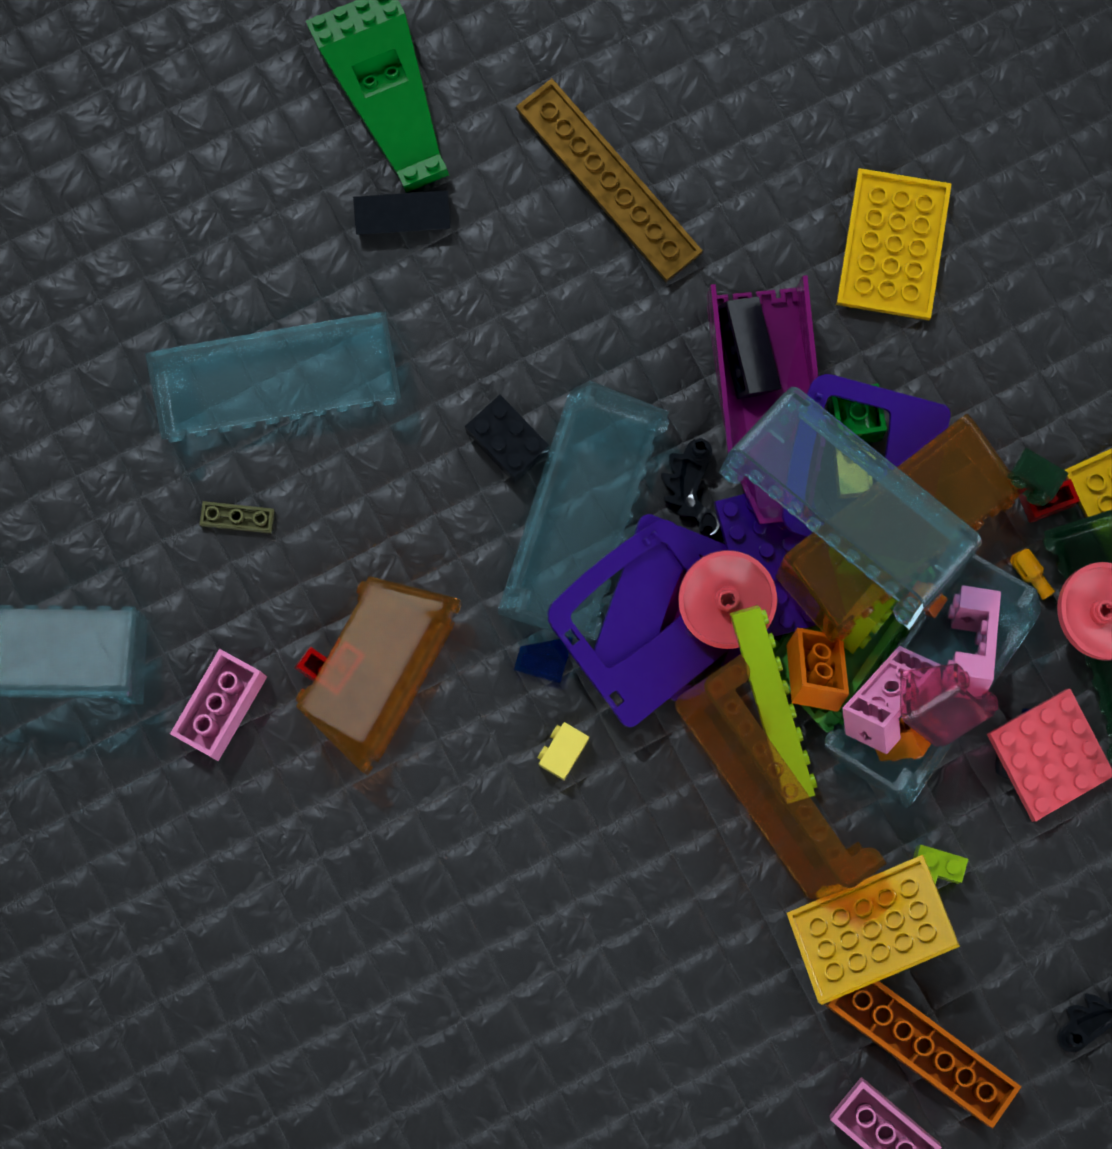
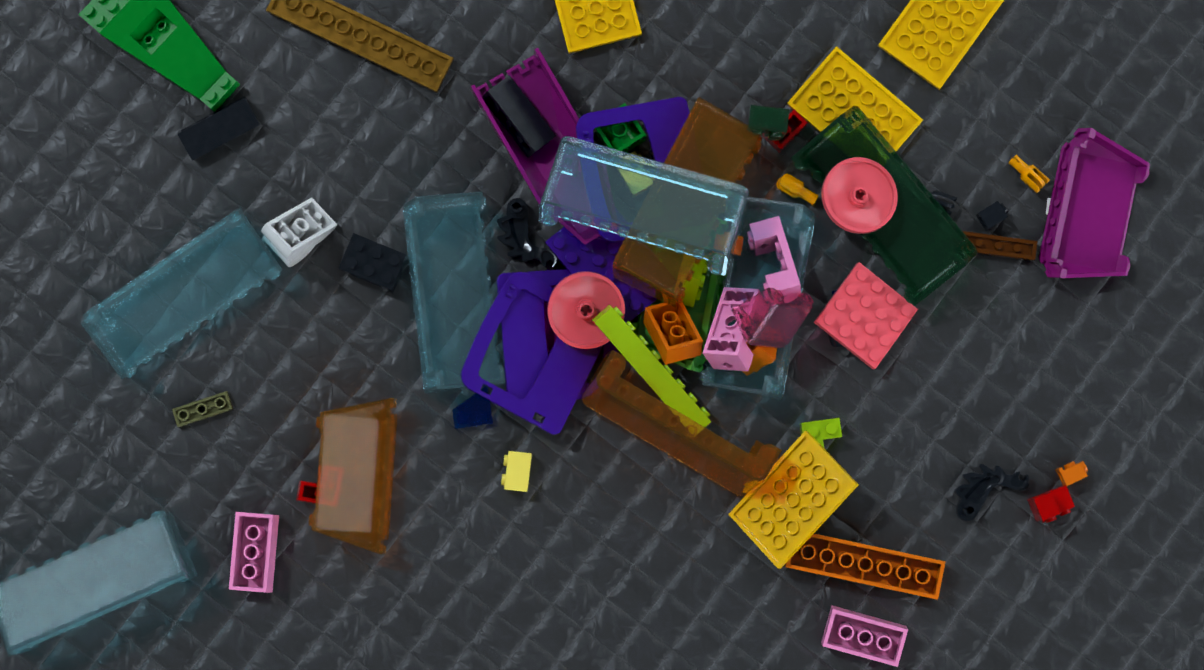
camera: 25 degrees left, 5 degrees up
(437, 364) = (298, 231): none -> white brick

